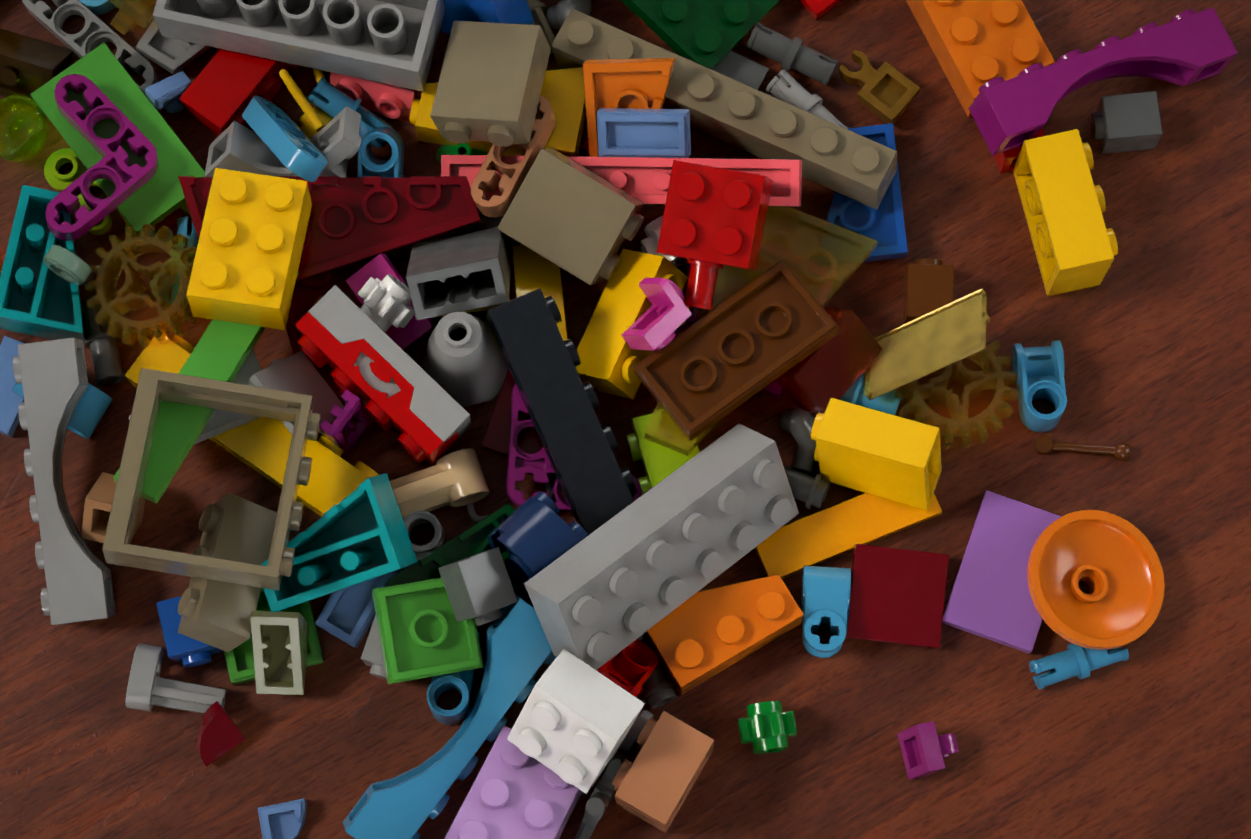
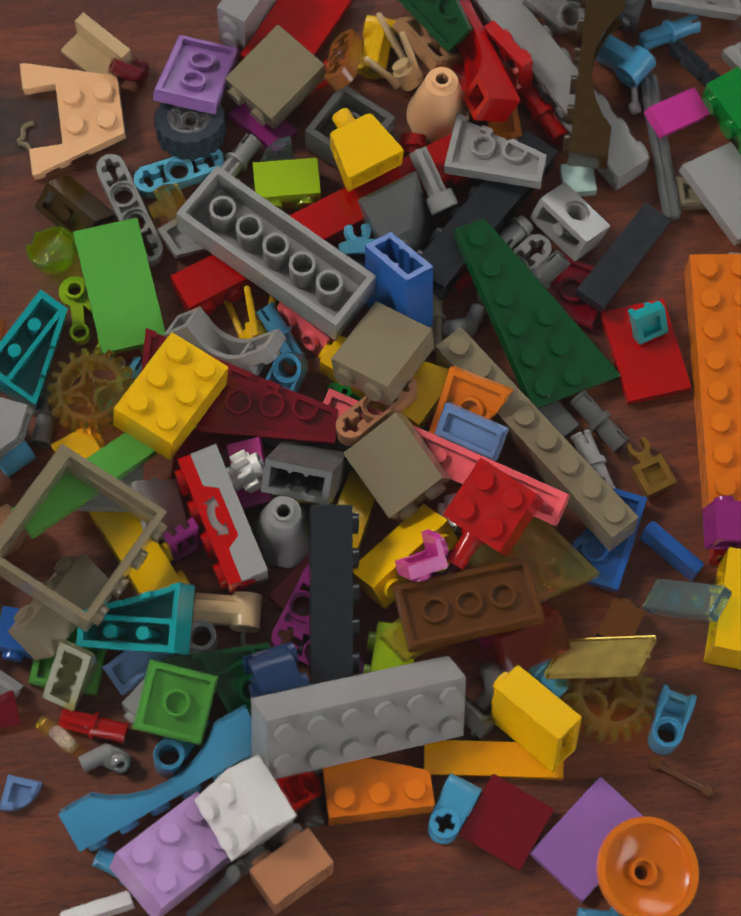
camera: 15 degrees right, 5 degrees down
(67, 265) = (45, 355): sand green tile -> none
(112, 166) = (104, 302): magenta beam -> none
(167, 92) = (165, 268): medium blue tile -> none
(284, 138) = (227, 332): dark azure beam -> none
(297, 731) = (56, 733): none -> clear yellow tile
(337, 700) = (94, 725): none -> red axle
(370, 731) = (107, 756): none -> light grey arm
(478, 586) = (221, 688): dark grey brick -> none
(767, 727) = (376, 872): green gear -> none
(951, 176) = (671, 551): none -> blue tile
(999, 228) = (687, 600): none -> clear light blue tile

